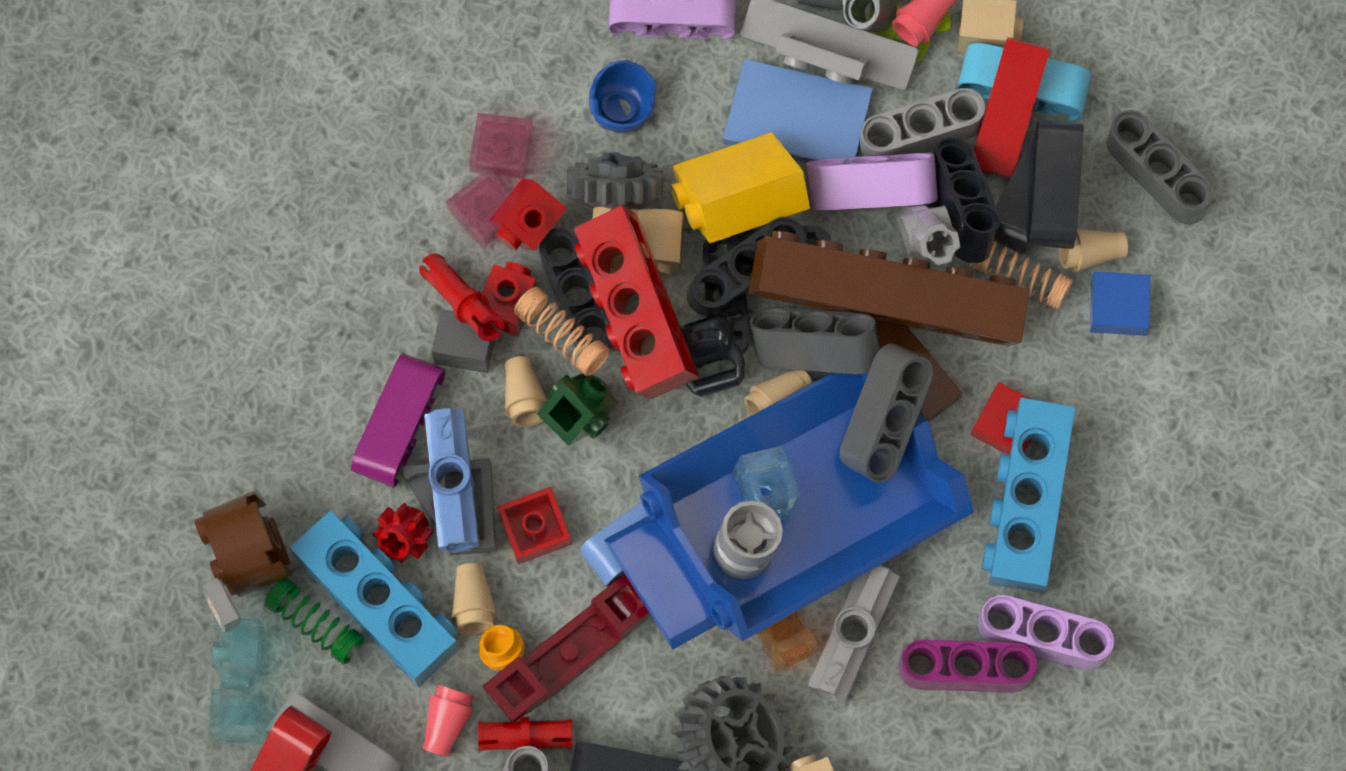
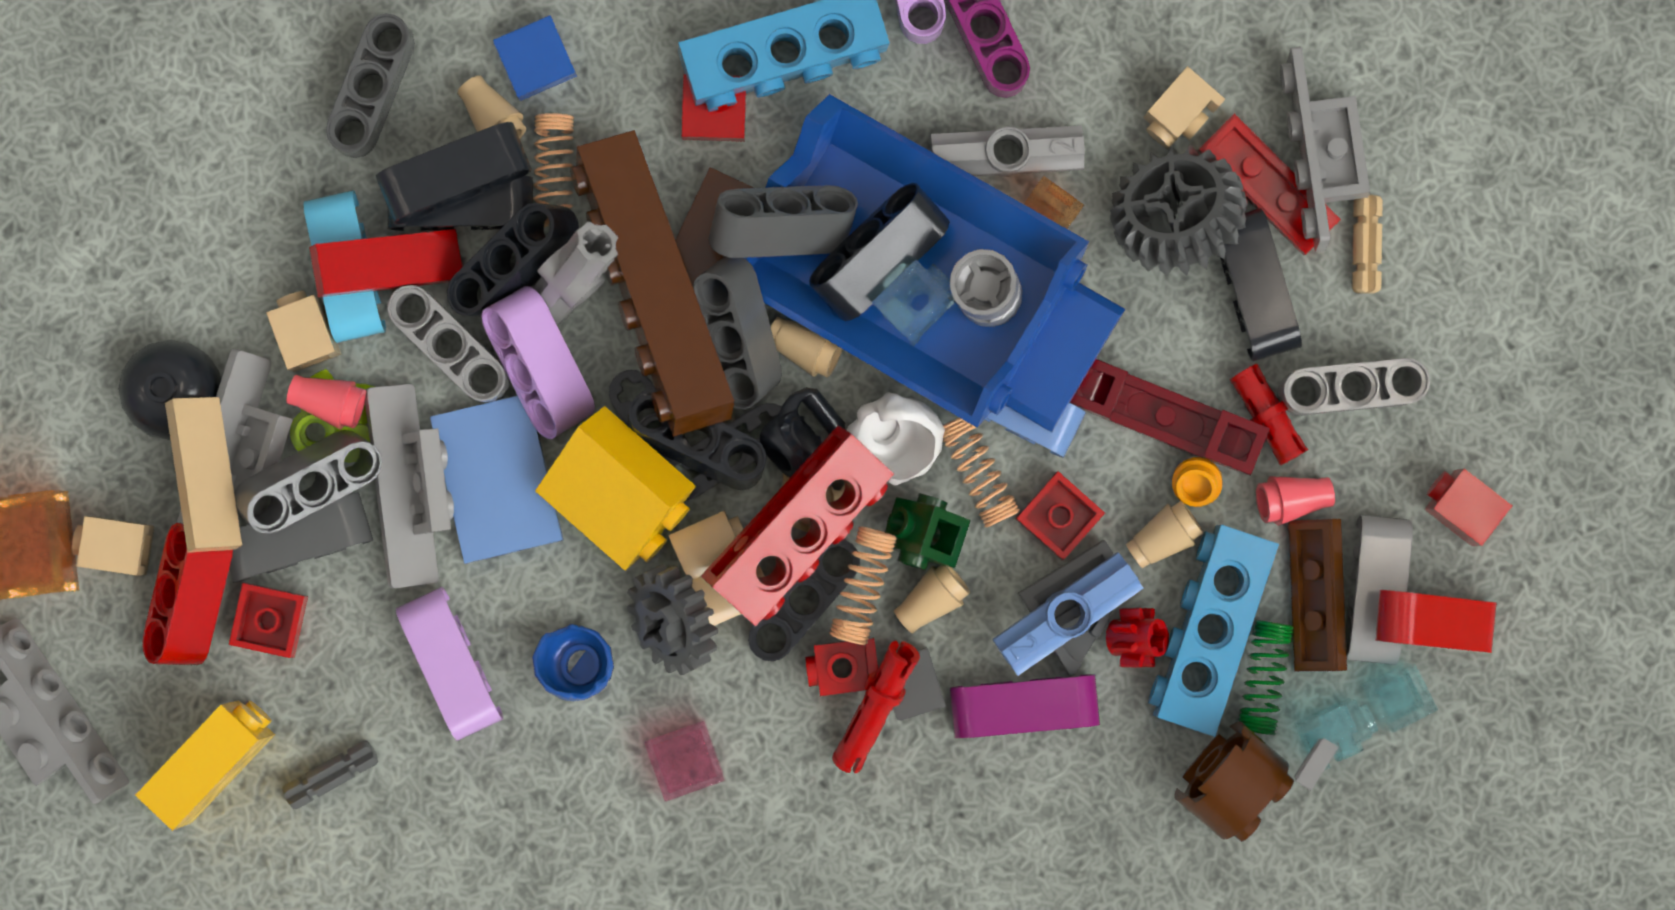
camera: 125 degrees left, 15 degrees up
(356, 696) = (1317, 595): none -> reddish brown tile
(477, 204) = (759, 740): clear pink piece -> none
(526, 215) = (755, 688): red brick -> none
(563, 474) = (999, 512): none -> light nougat piece
(665, 424) = (900, 434): none -> white hair
(823, 477) = (879, 251): none -> black beam

